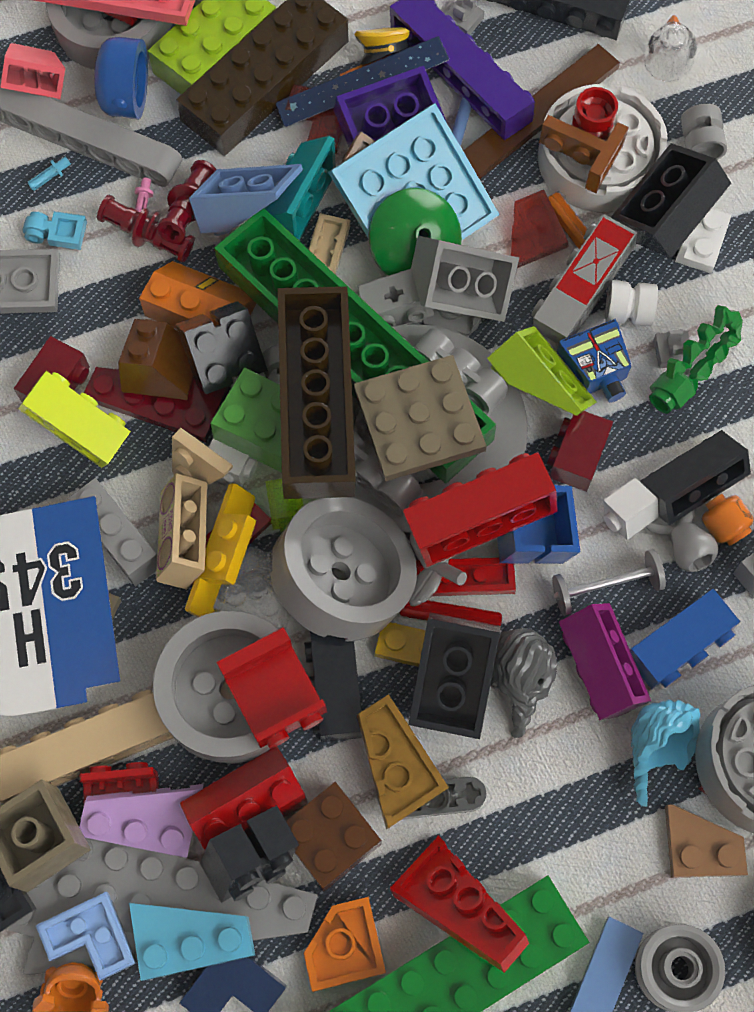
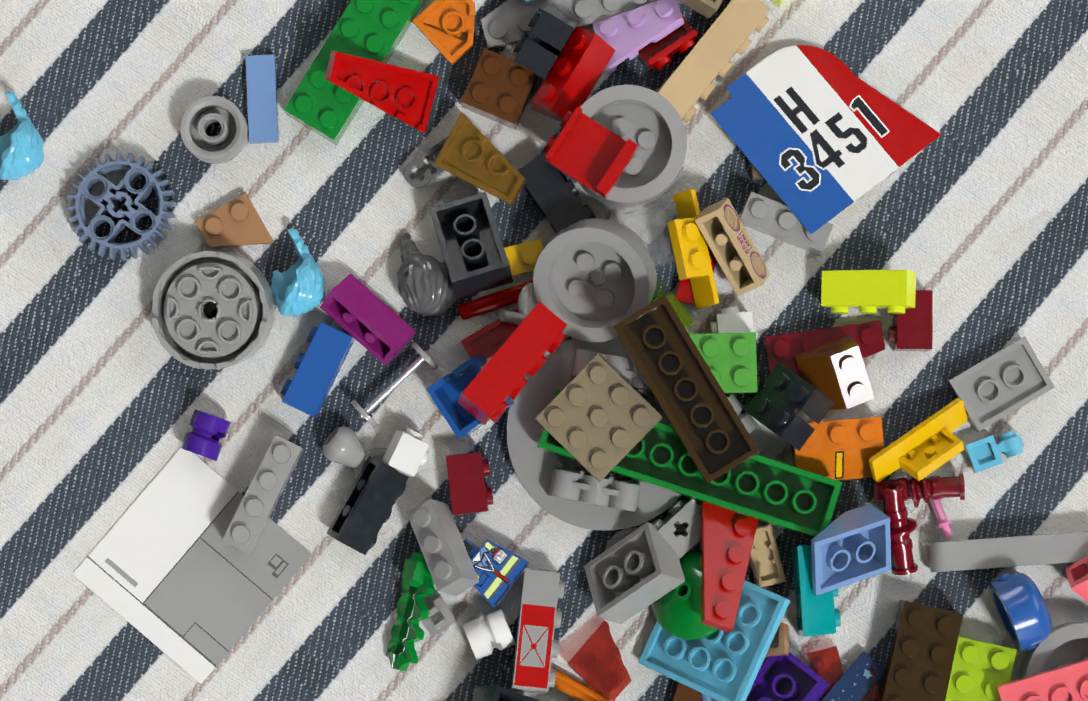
camera: 150 degrees right, 15 degrees up
(49, 173) = (1031, 505): medium azure piece -> none
(114, 252) = (924, 446): none -> yellow bracket
(196, 460) = (758, 304): tan wing -> none
(372, 234) = (726, 552): none -> red wing
(536, 368) = (527, 523): lime slope -> none
(640, 393) = (442, 547): none -> light grey brick
(727, 519) = (327, 485): orange head -> none

